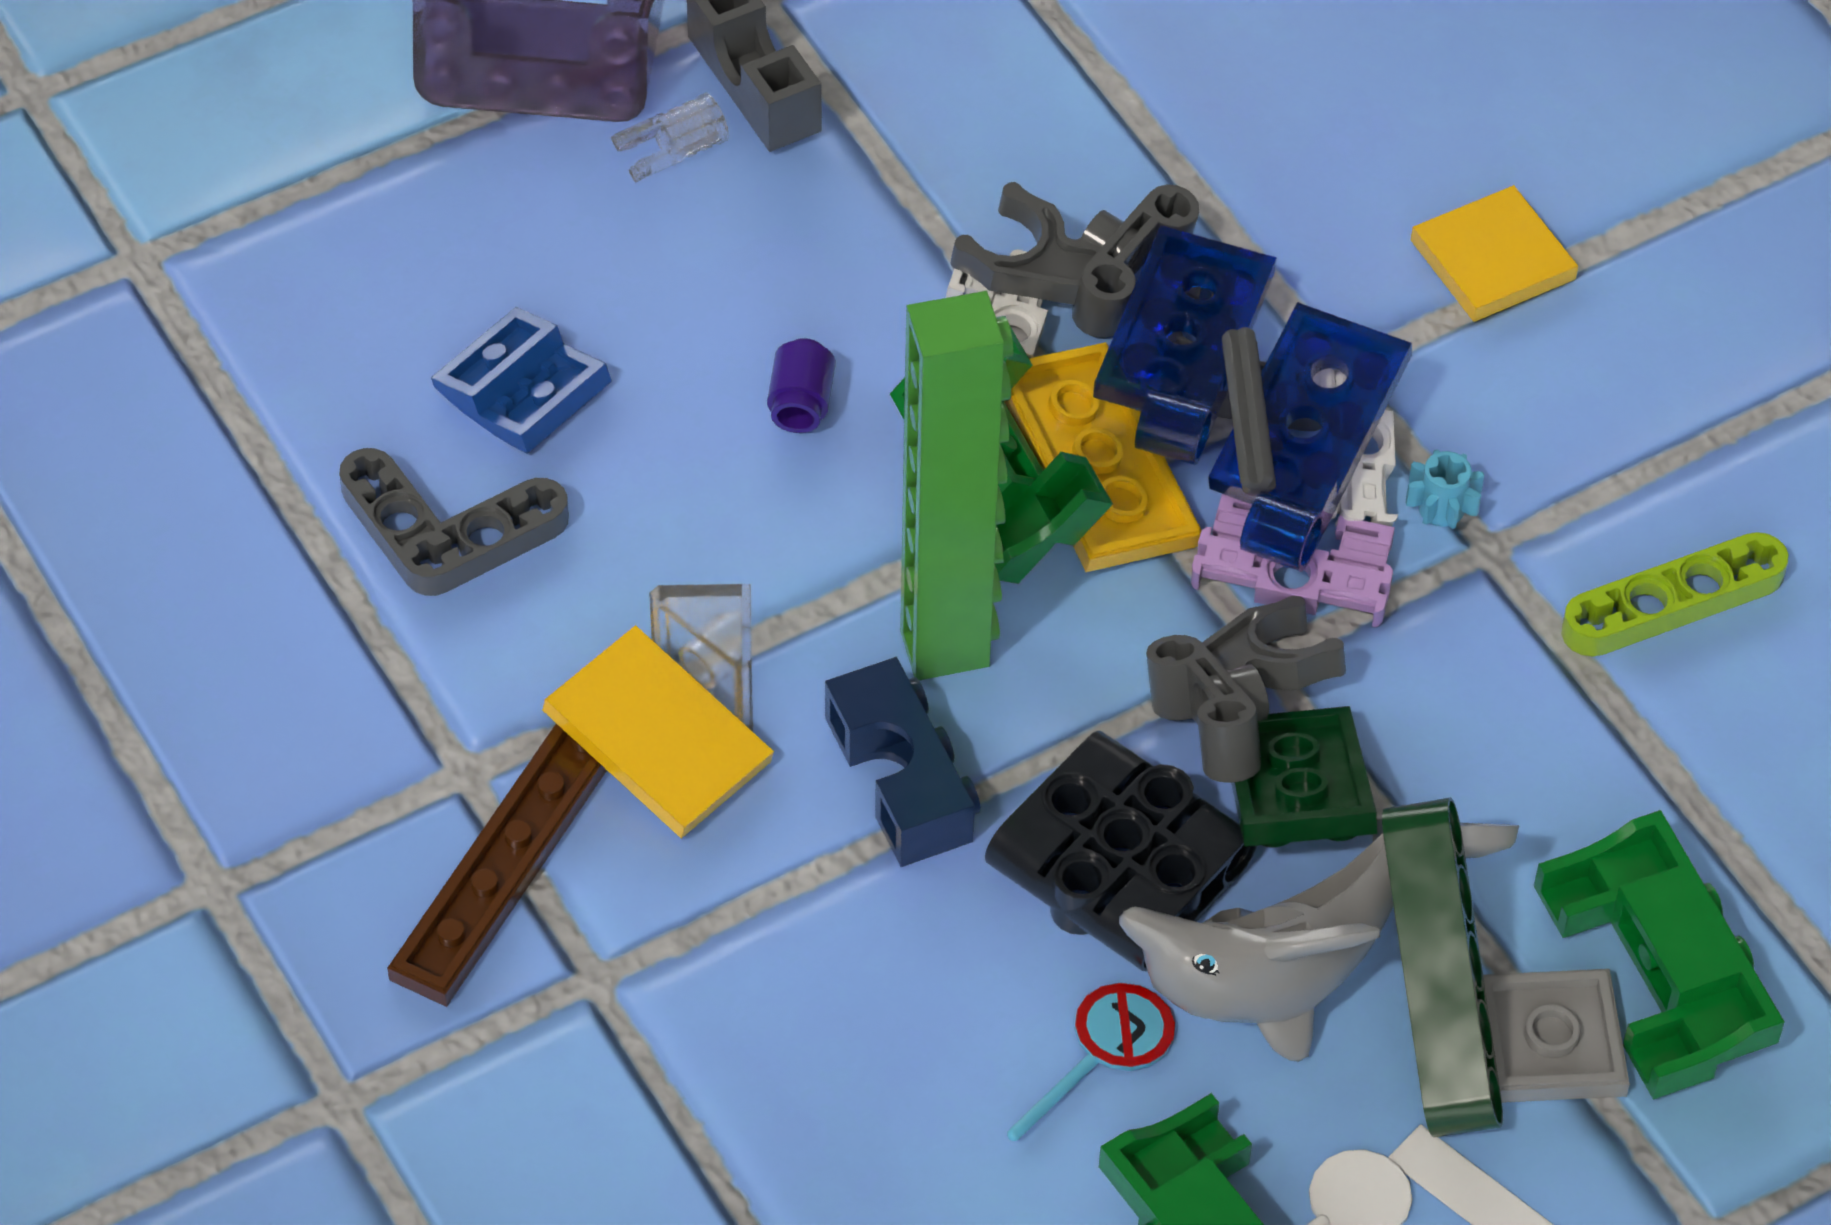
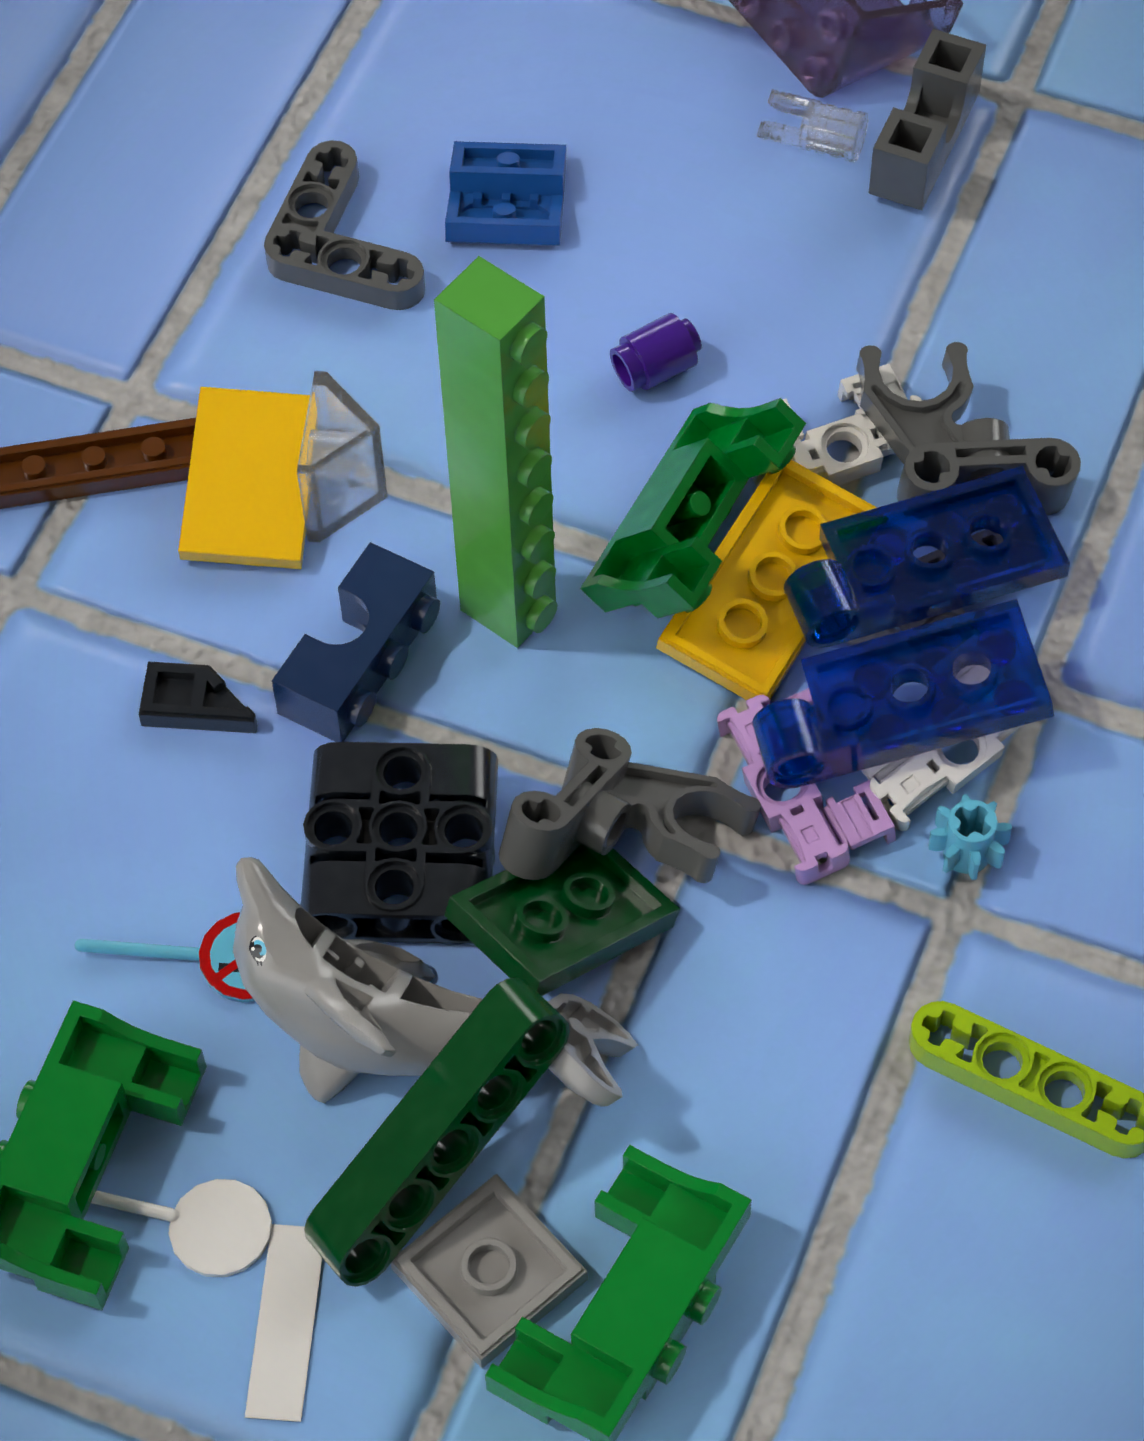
camera: 55 degrees right, 5 degrees up
(836, 915) = (191, 699): none -> black tile
(1248, 411) = (874, 638): dark grey axle -> none

